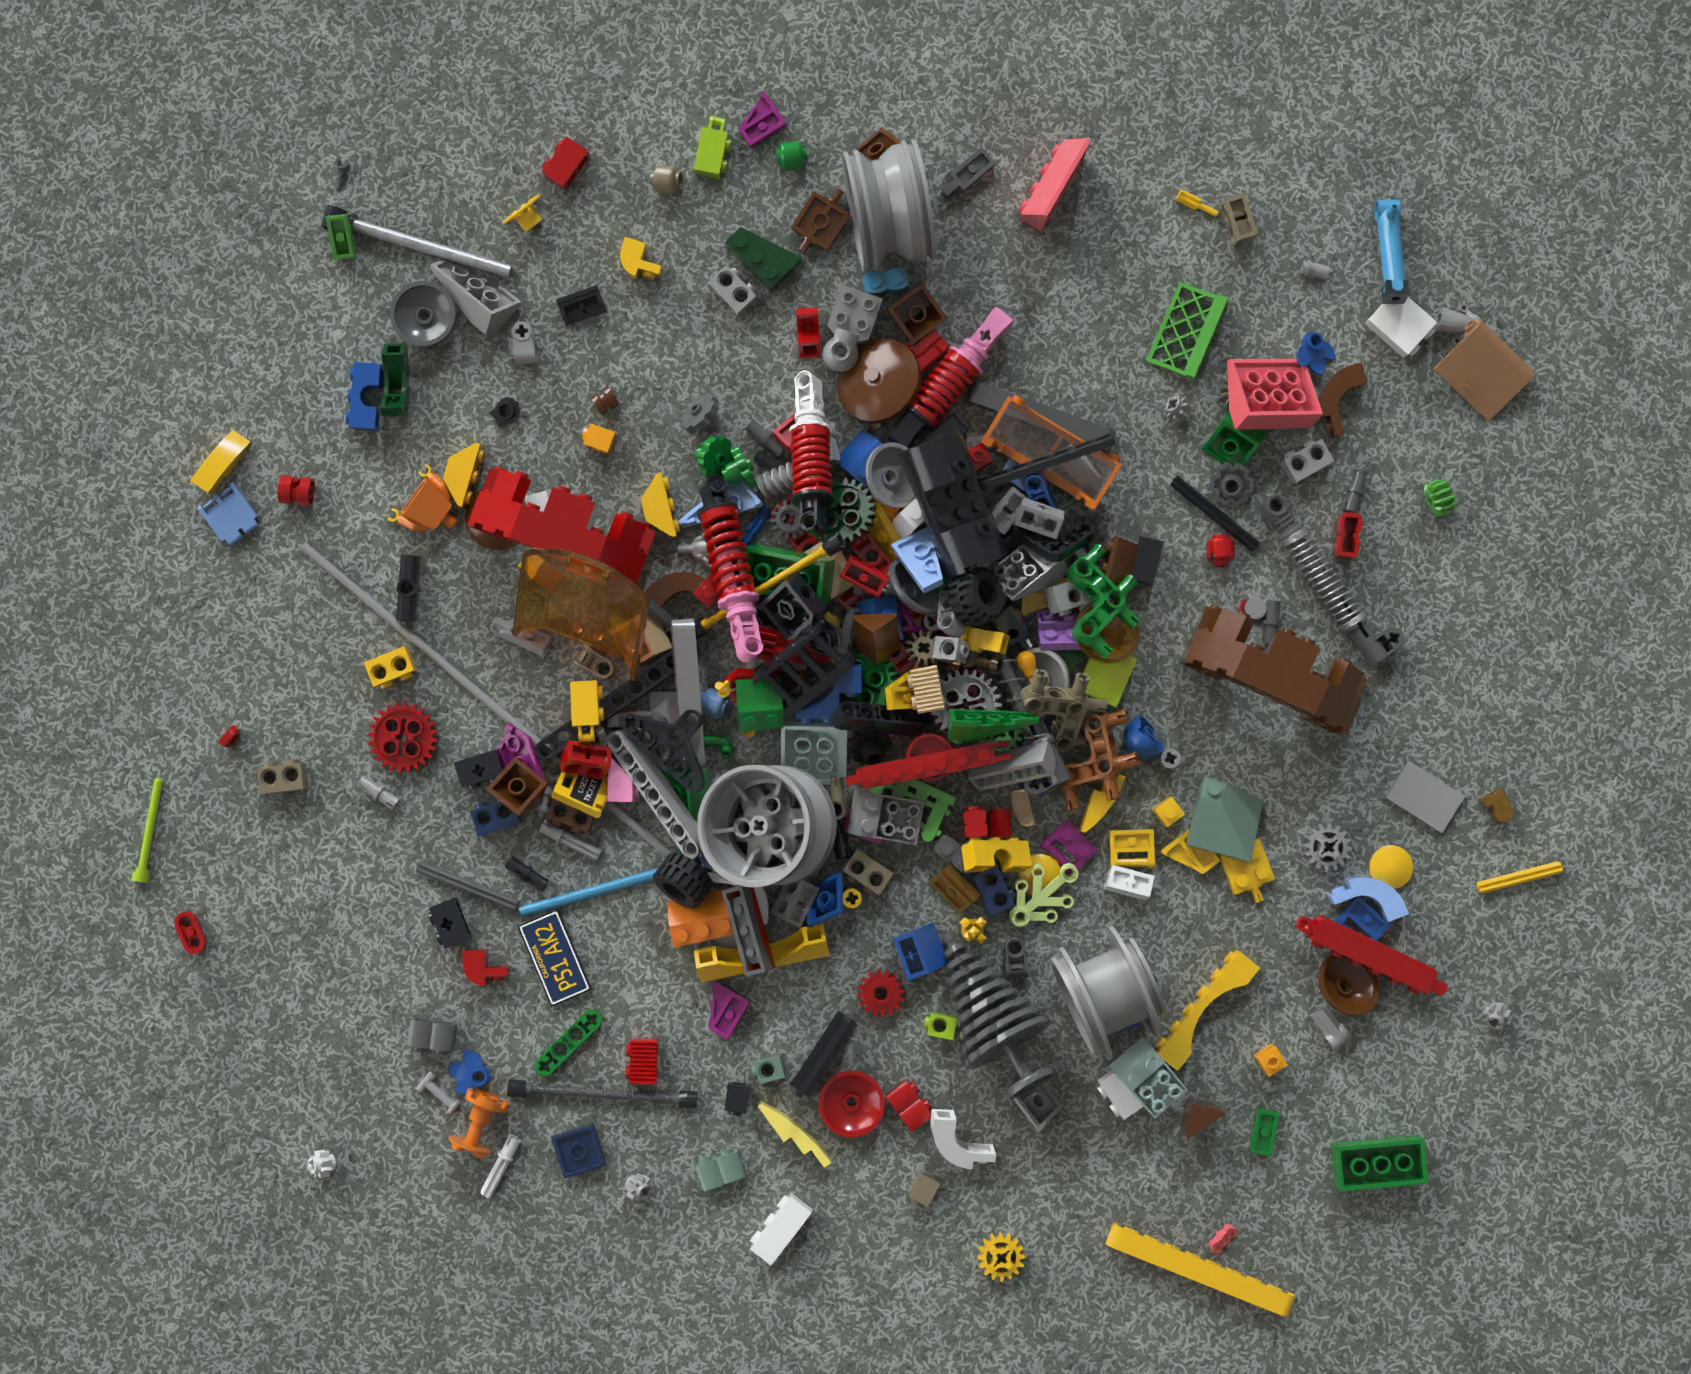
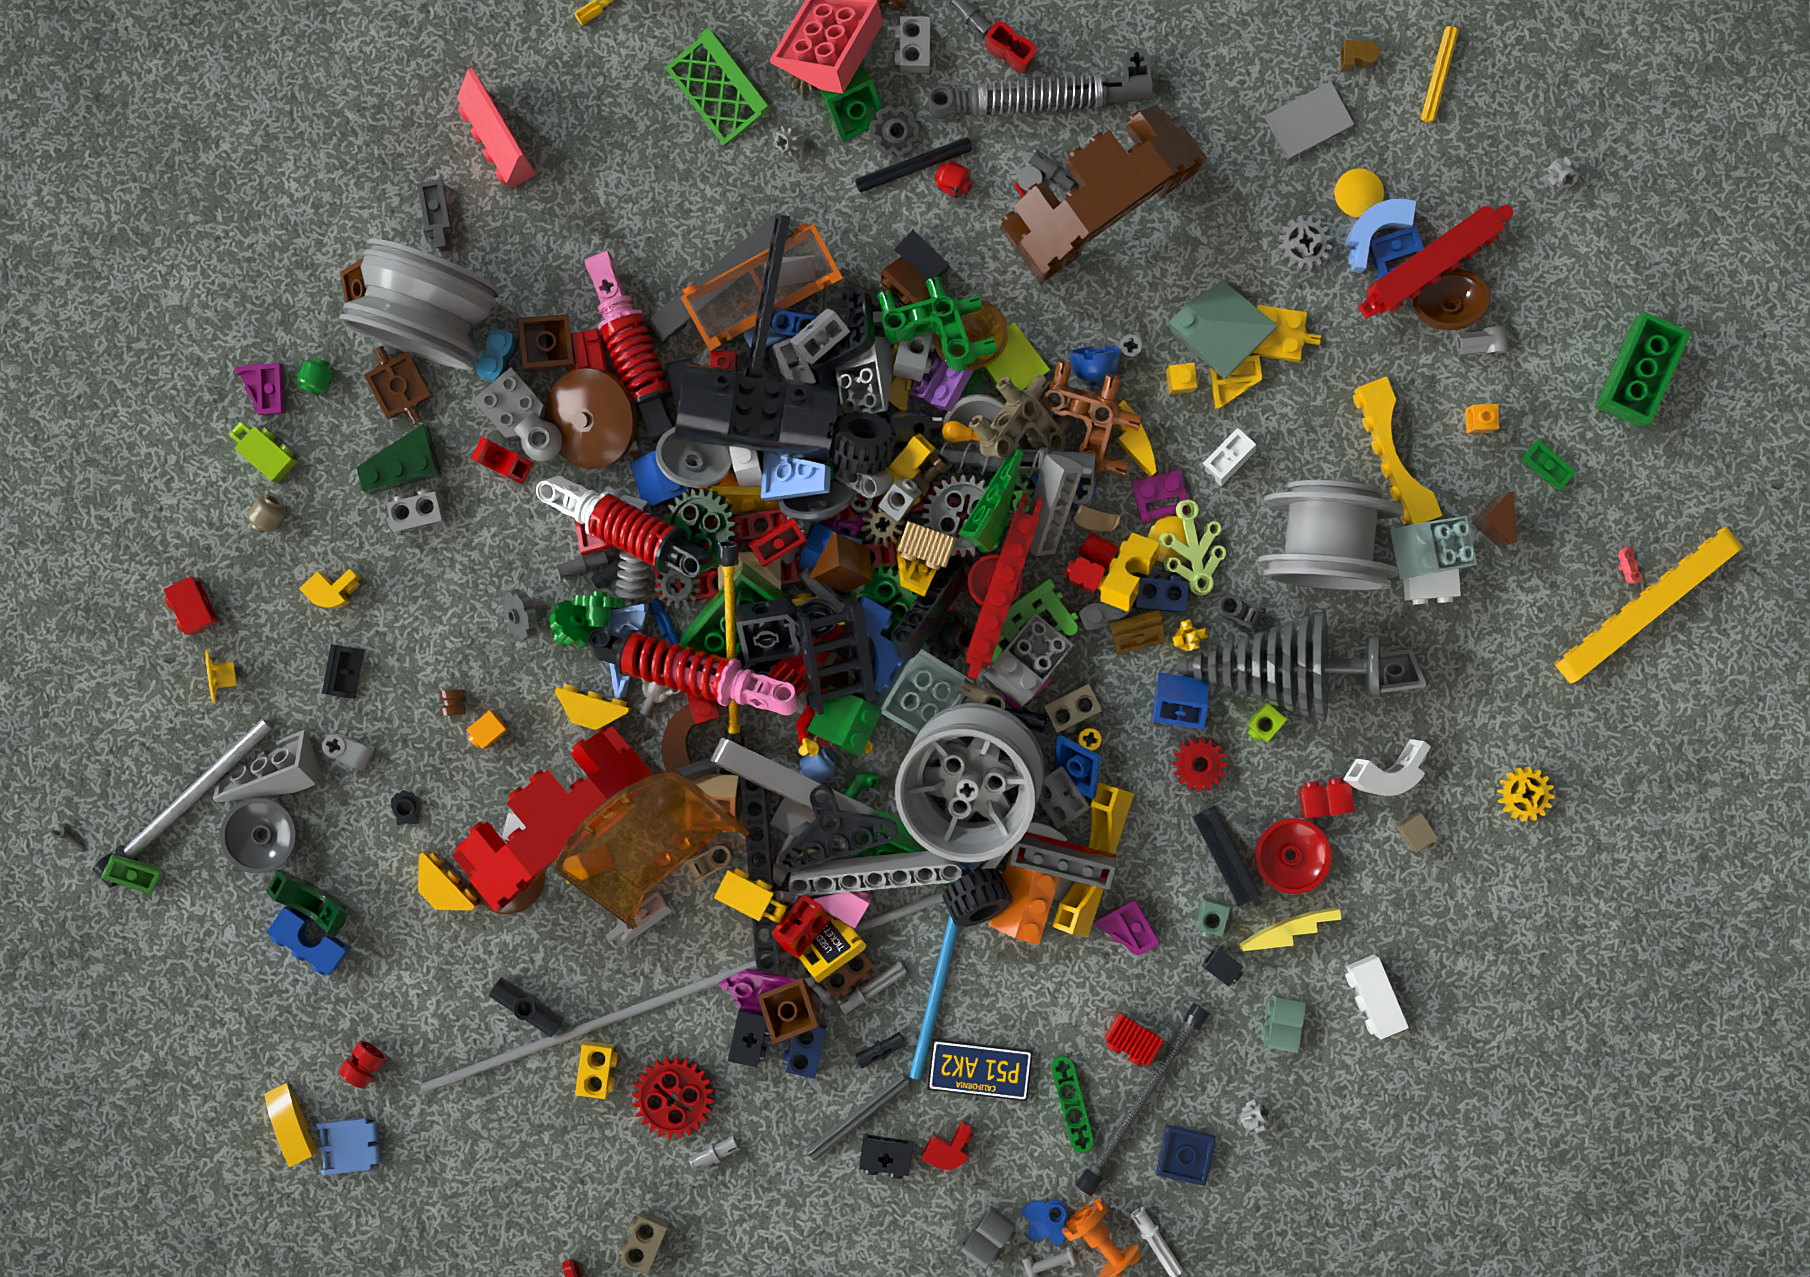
camera: 65 degrees left, 0 degrees up
(427, 505) = (454, 941): orange torso -> none
(1132, 841) = (1190, 431): yellow plate -> none

